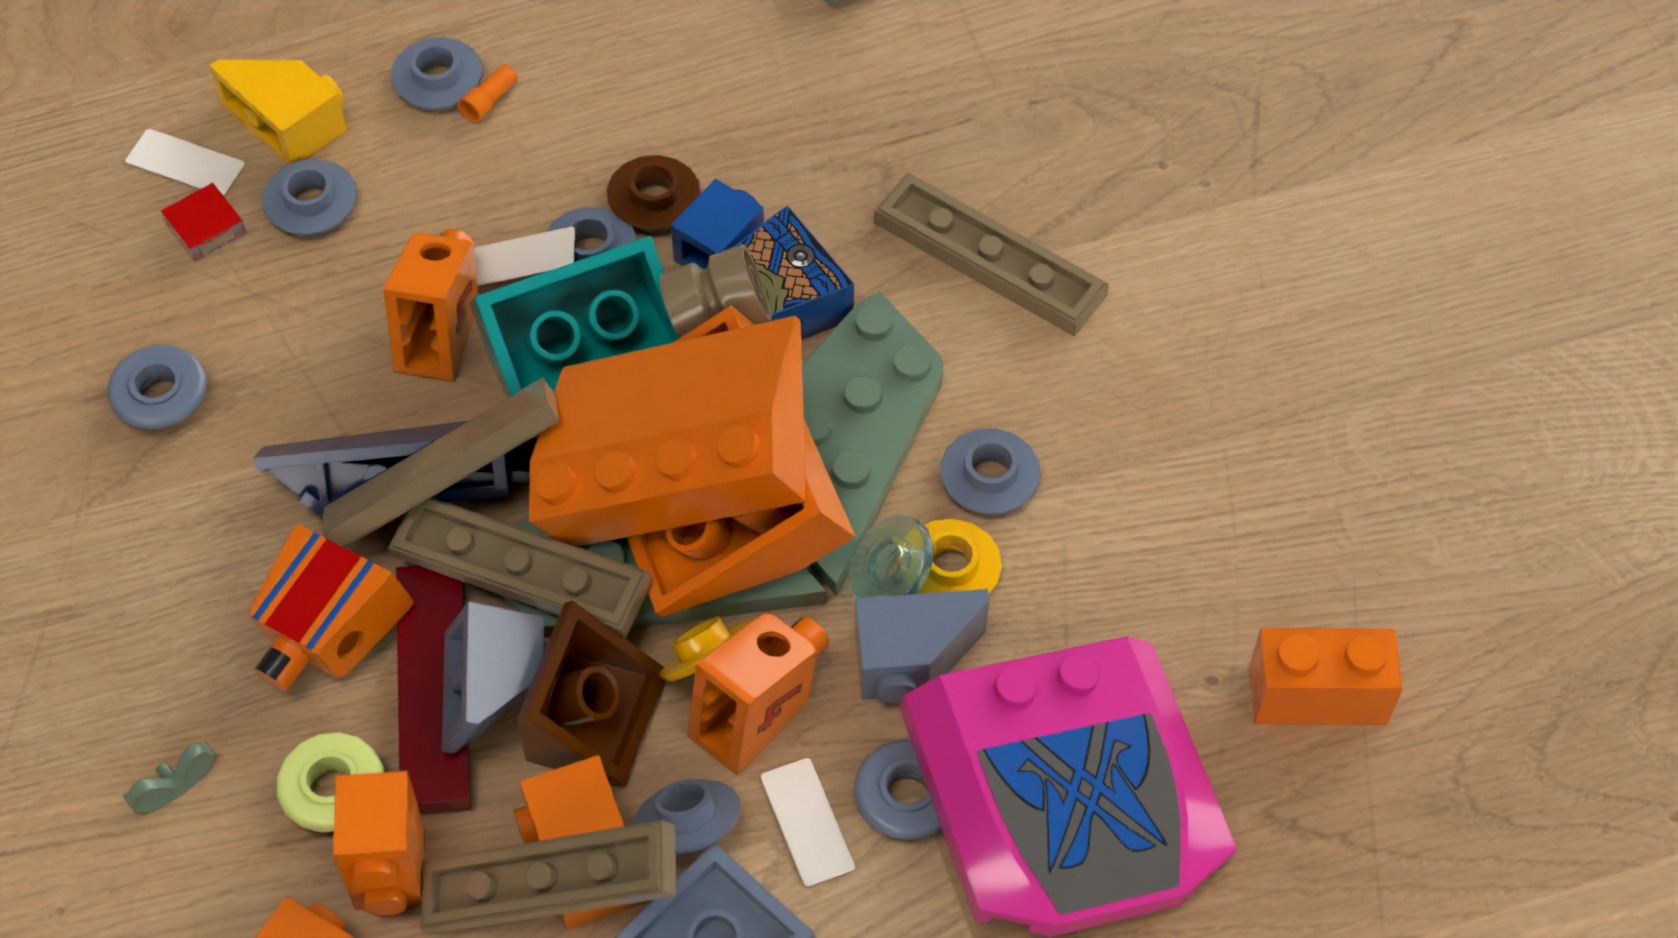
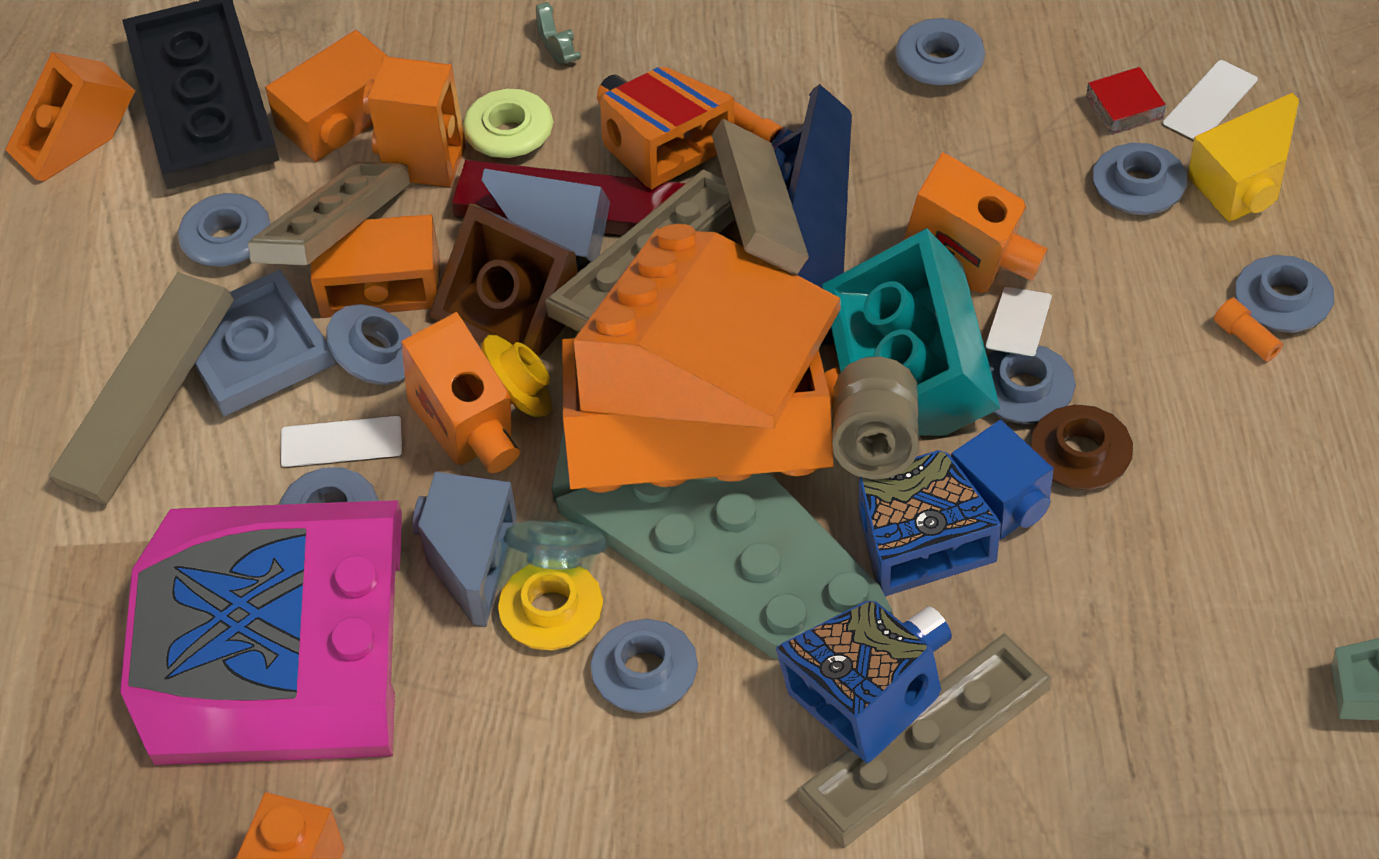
camera: 110 degrees right, 5 degrees down
(299, 514) = (754, 123): none -> orange piece
(963, 281) = (866, 673): none -> torso

